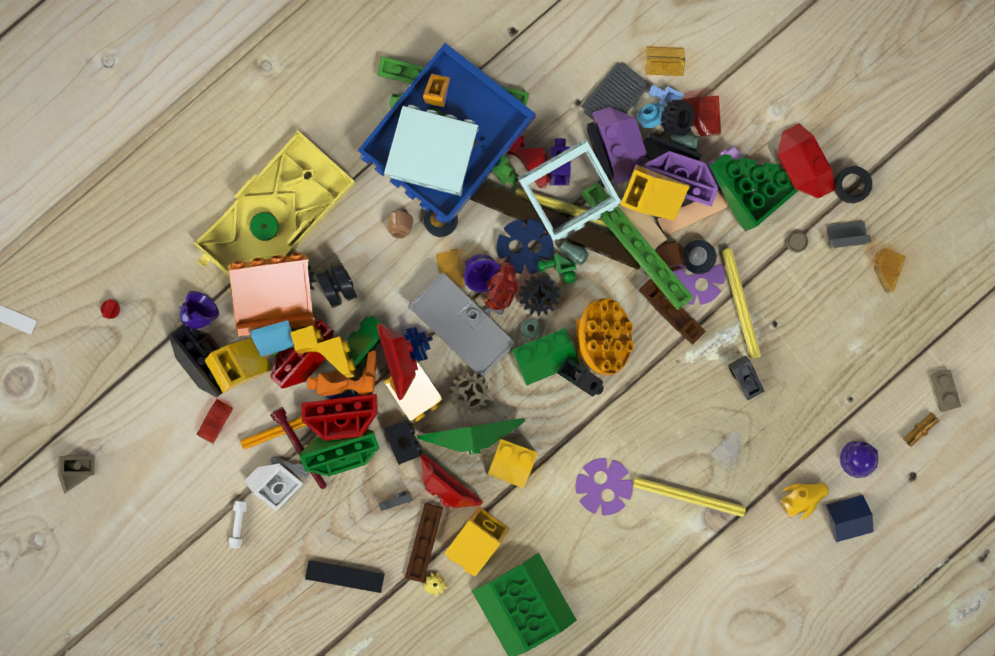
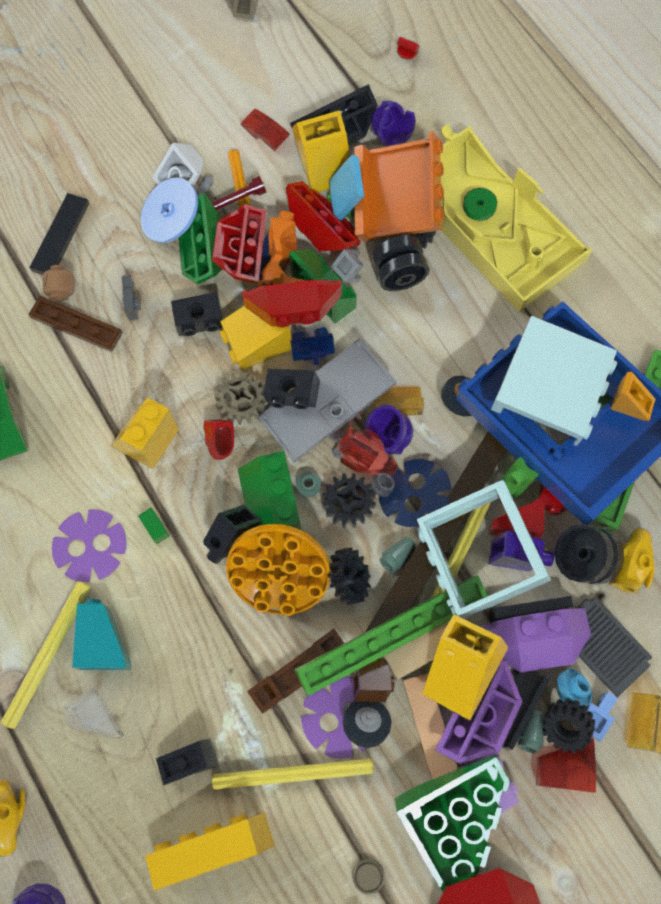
camera: 105 degrees right, 15 degrees down
(235, 541) = (129, 132): white bar -> none
(312, 472) = (181, 200): none -> light blue piece
(334, 350) = (317, 236): yellow arch -> none
(343, 326) = (348, 265): none -> light grey panel
(393, 563) = (58, 283): none -> medium nougat head
(400, 223) = (464, 348): medium nougat head -> none
(435, 578) = (25, 332): light yellow animal -> none
(446, 486) = (135, 354): red wedge -> none
(457, 364) = (281, 380): none -> black brick
(473, 437) = (182, 386): green slope -> none
(477, 541) = (60, 379): yellow slope -> none
(504, 403) = (219, 438): none -> rock
(522, 267) = (382, 484): none -> flat silver plate
(552, 80) = (637, 563): none -> yellow animal
(556, 113) = (589, 554): none -> black wheel
(561, 265) = (382, 533): green piece -> none
(582, 439) = (153, 525): none -> green piece
(599, 284) = (349, 576): none -> black gear
(674, 460) = (97, 639): none -> teal slope
(801, 349) = (209, 851): none -> yellow wedge

